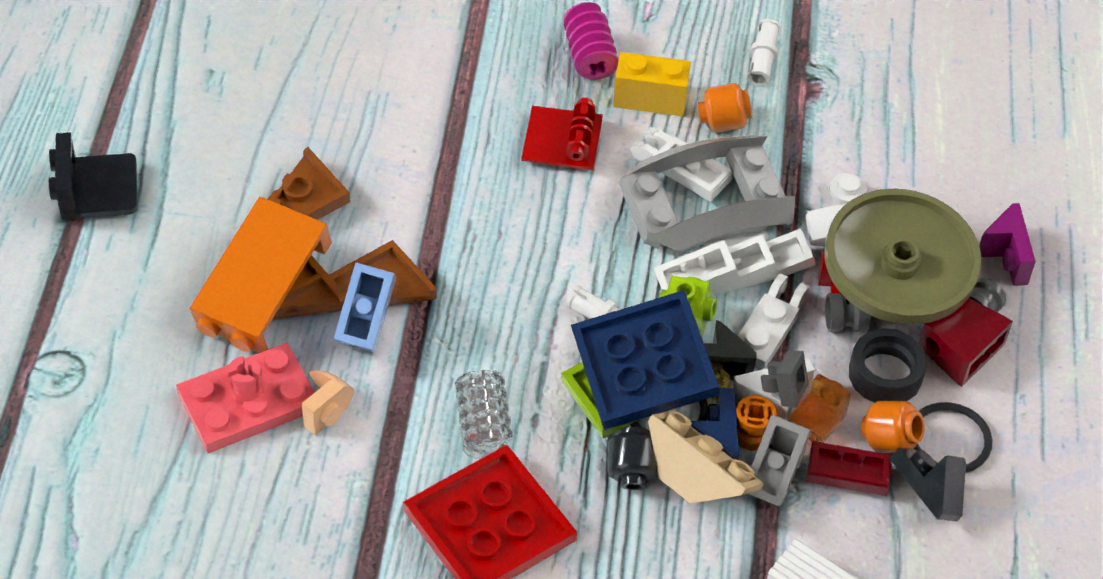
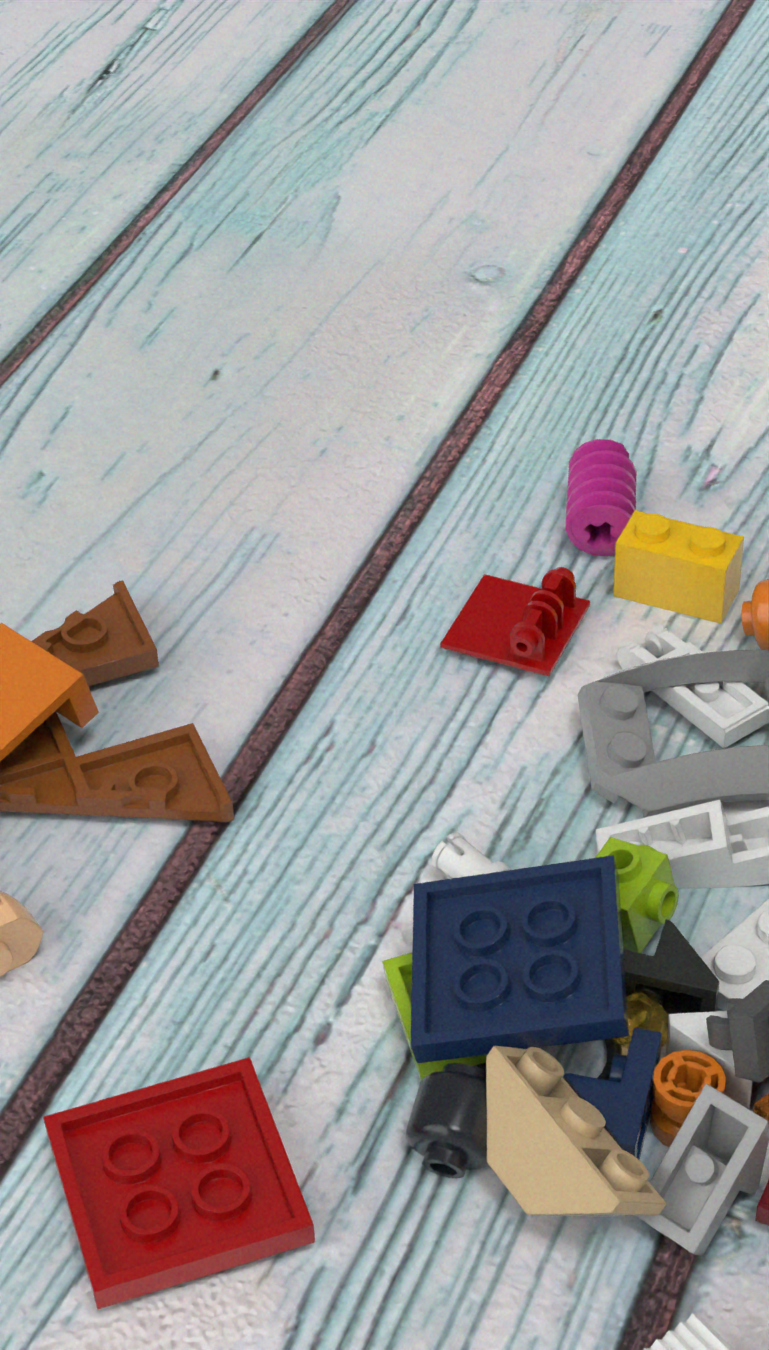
camera: 20 degrees right, 10 degrees down
(365, 307) = (100, 806): light blue brick -> none
(483, 412) = (230, 999): clear piece -> none

